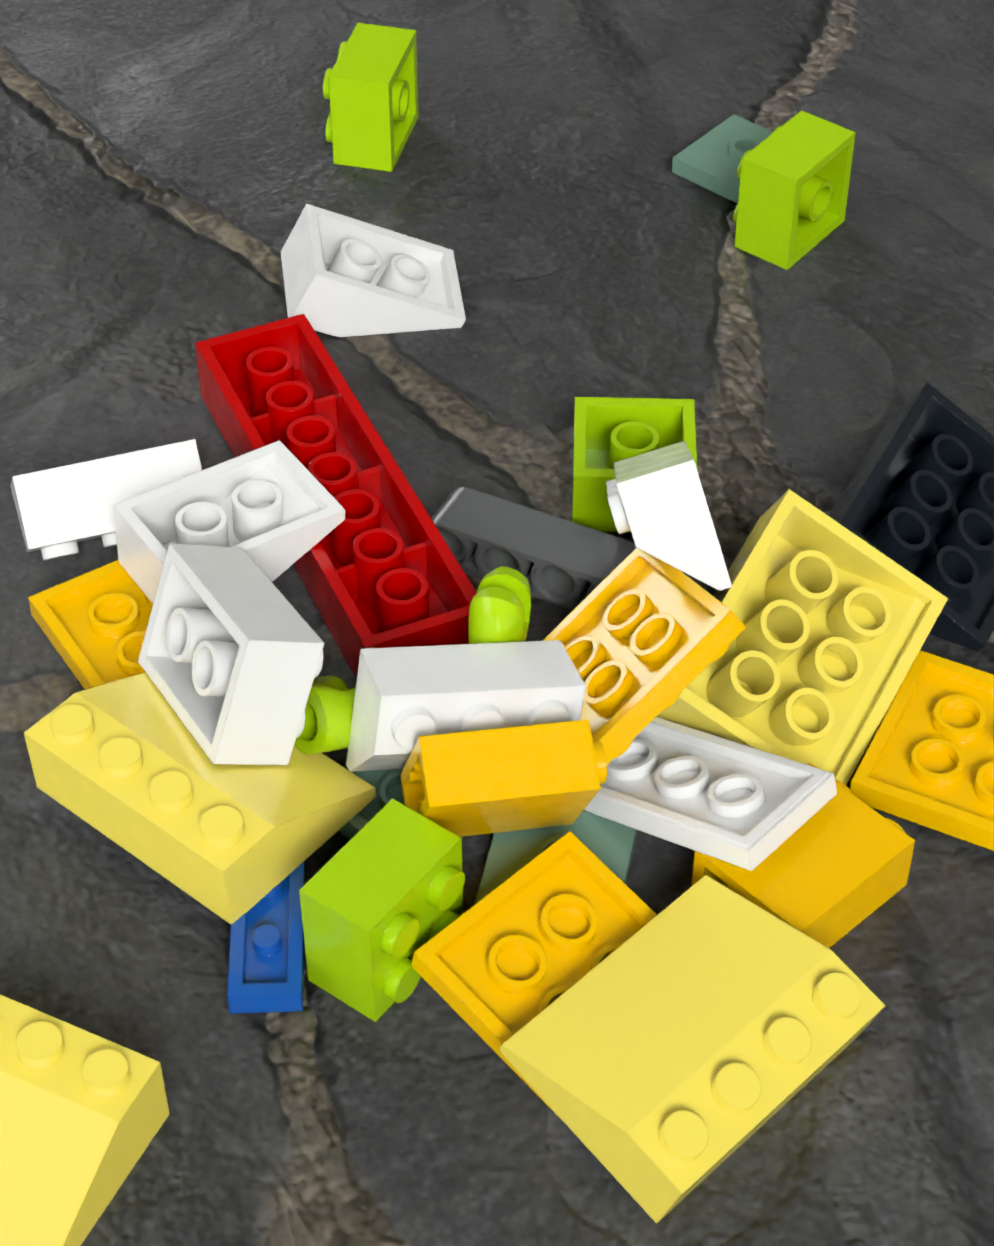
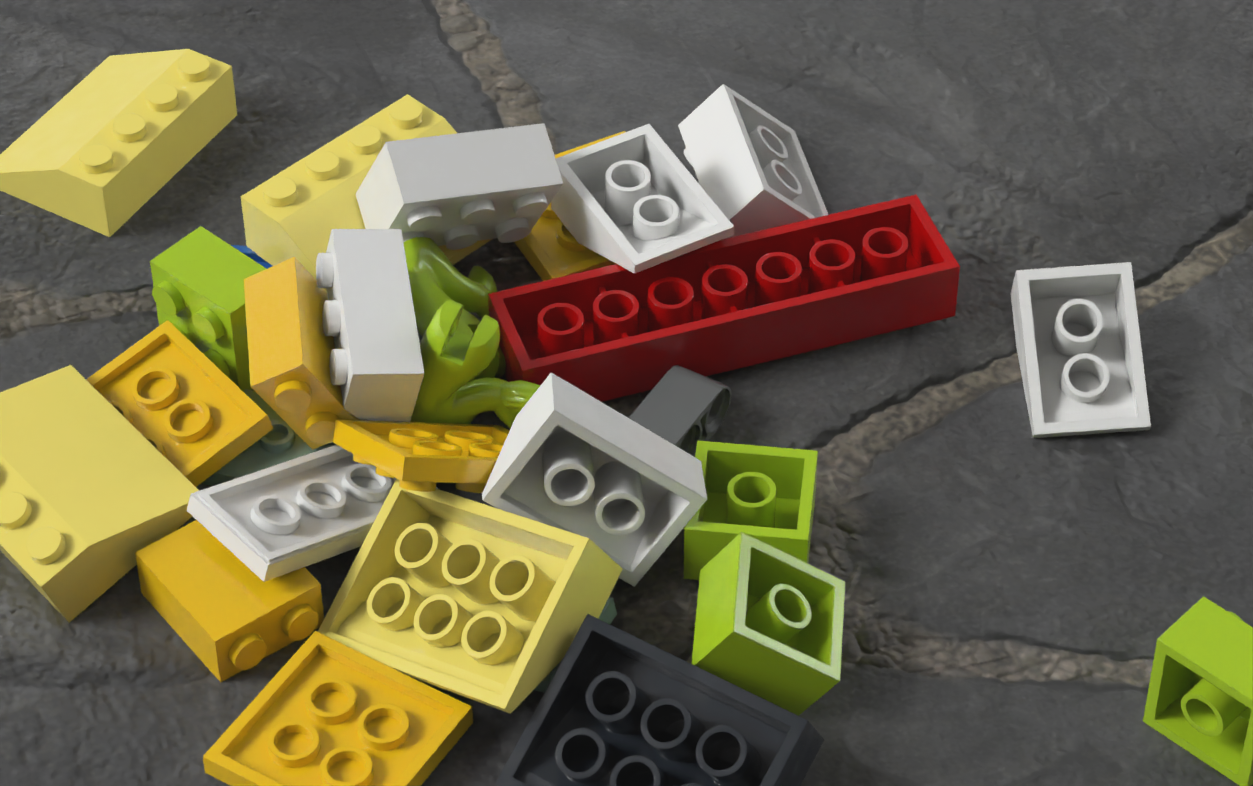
camera: 95 degrees right, 0 degrees up
(790, 437) = (769, 624): none -> lime brick

